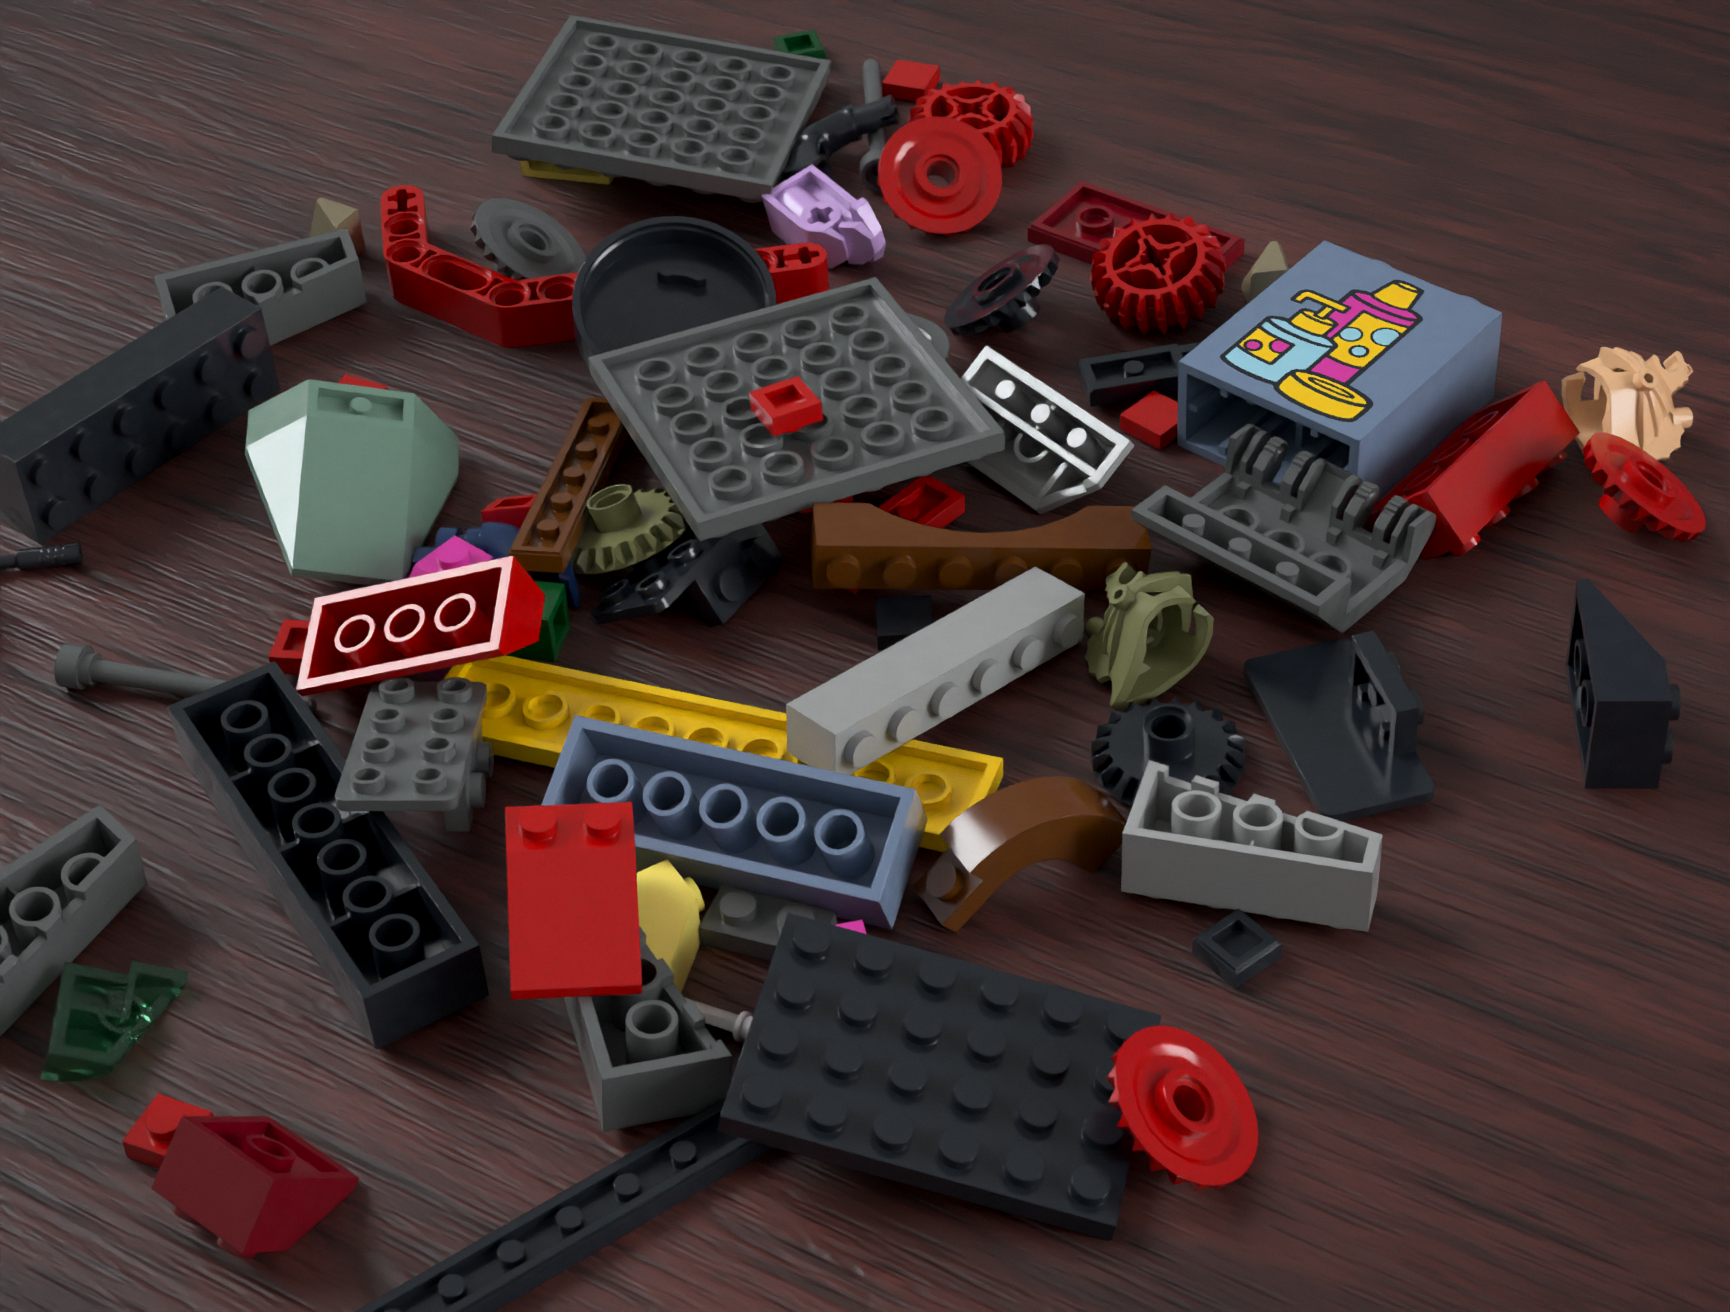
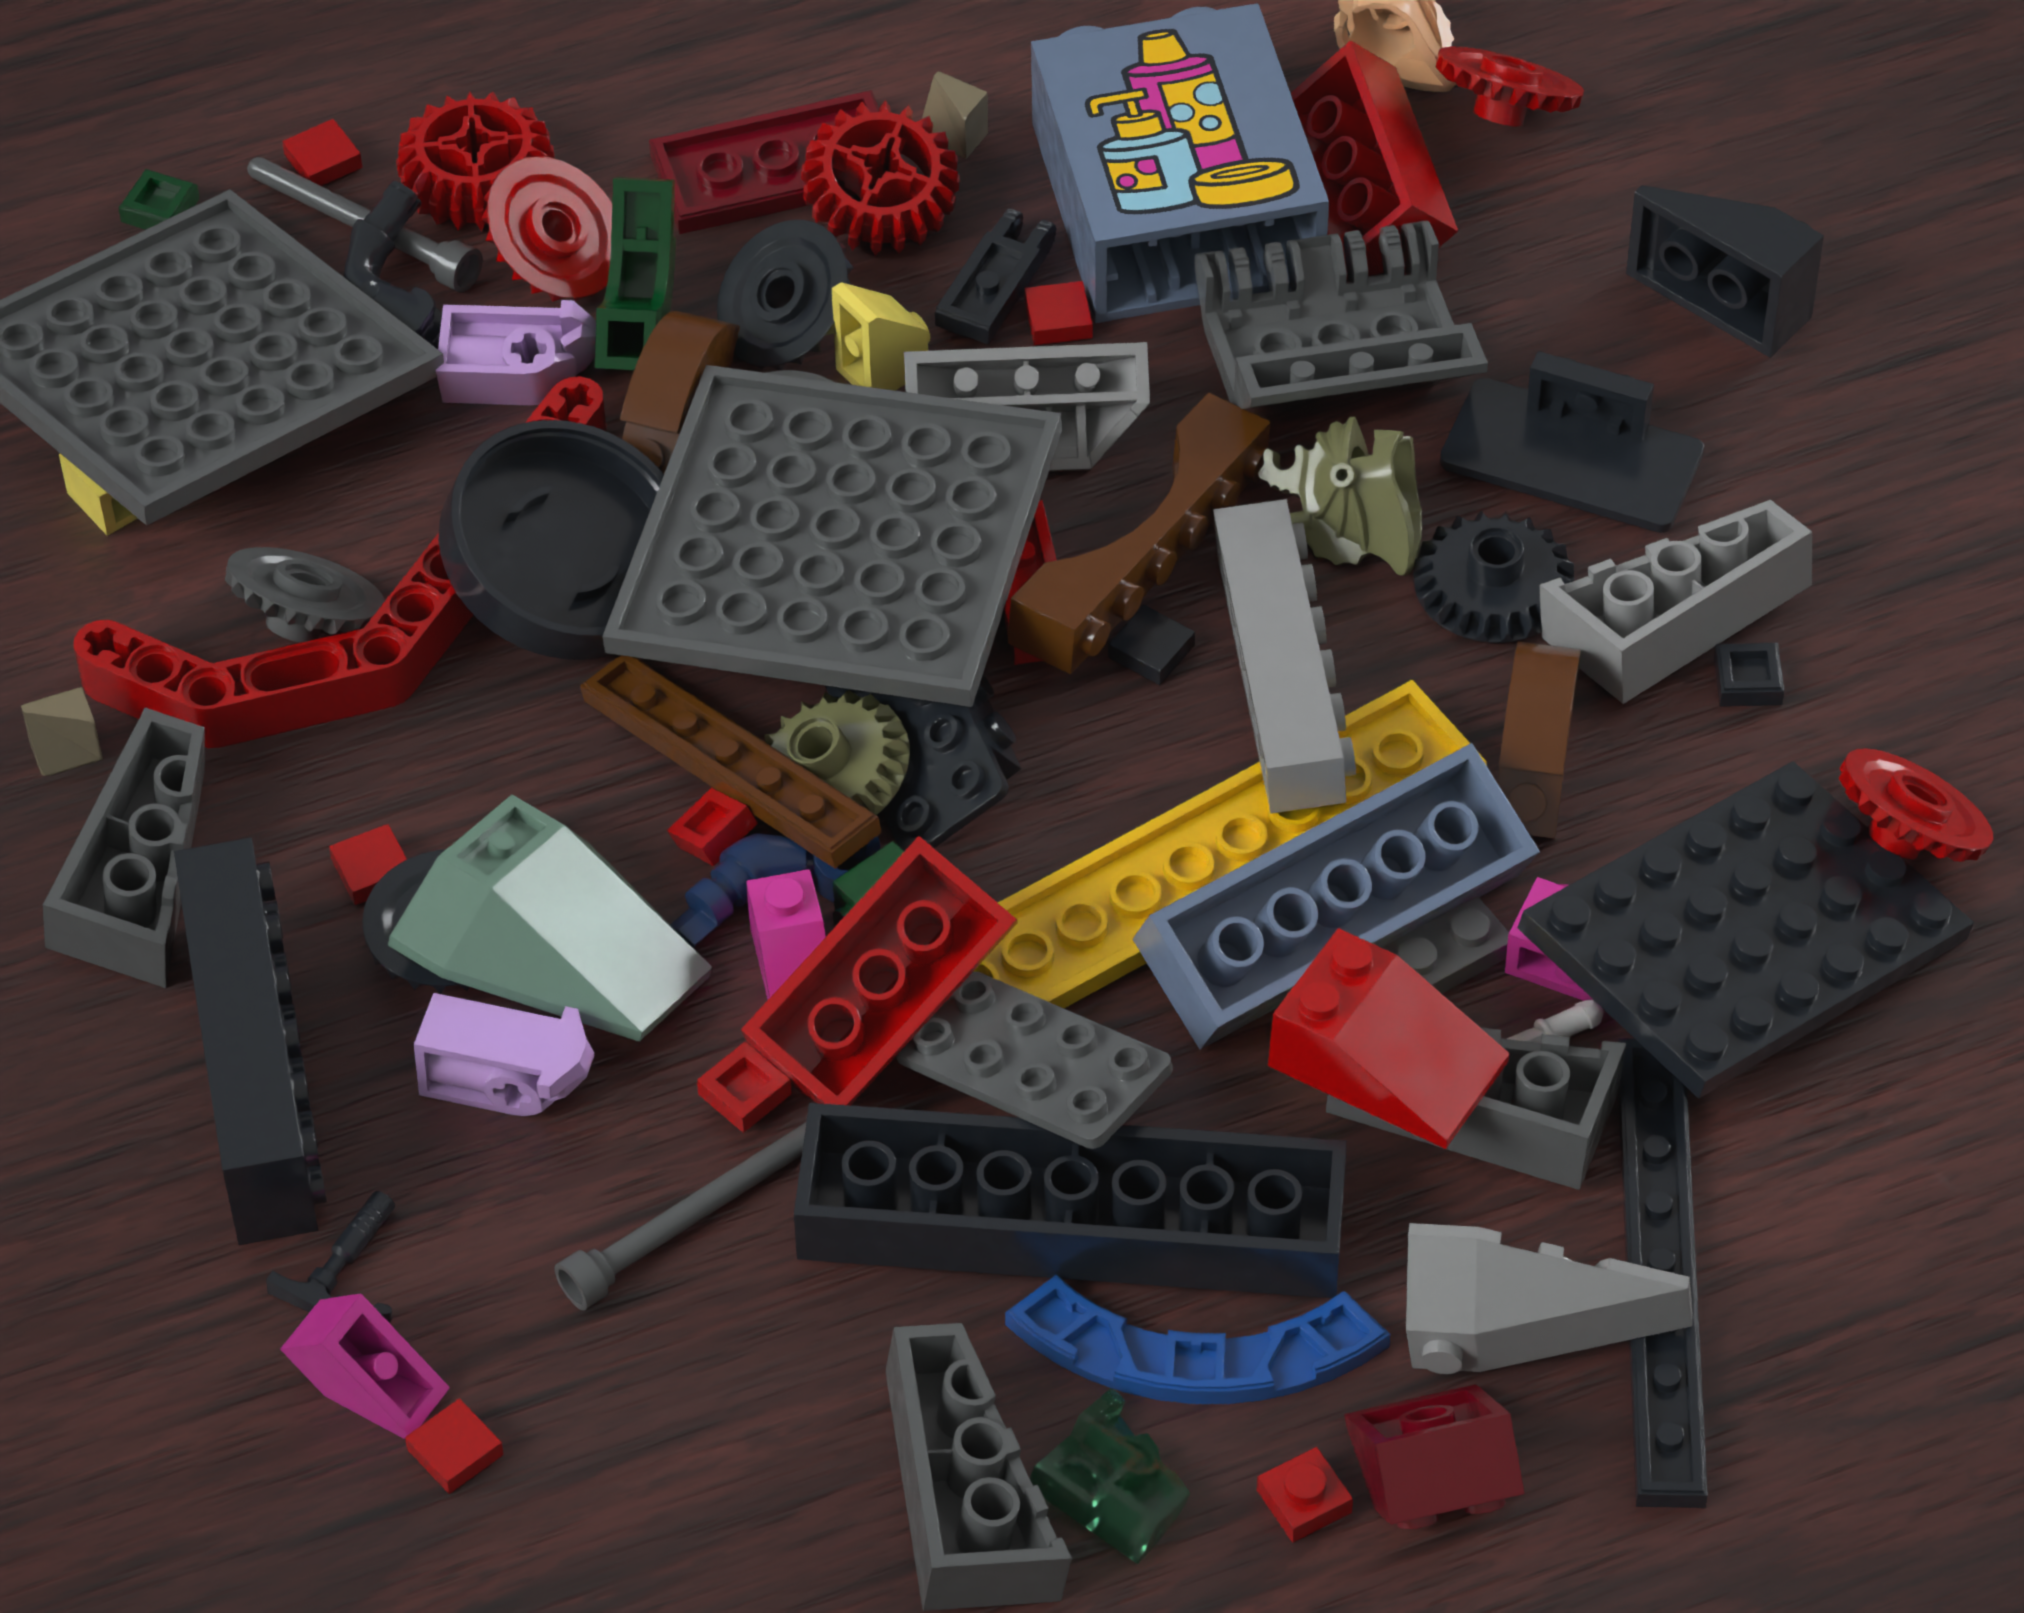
camera: 55 degrees left, 10 degrees up
(221, 519) = (499, 1056): none -> lavender piece
(254, 1014) = (1196, 1365): none -> blue tile
(416, 1140) = (1503, 1306): none -> light grey wedge
(786, 406) = (879, 533): red plate -> none
(904, 270) = (669, 378): none -> reddish brown arch
(942, 242) = (639, 270): none -> dark green arch
(1017, 332) = (873, 336): none -> light yellow slope

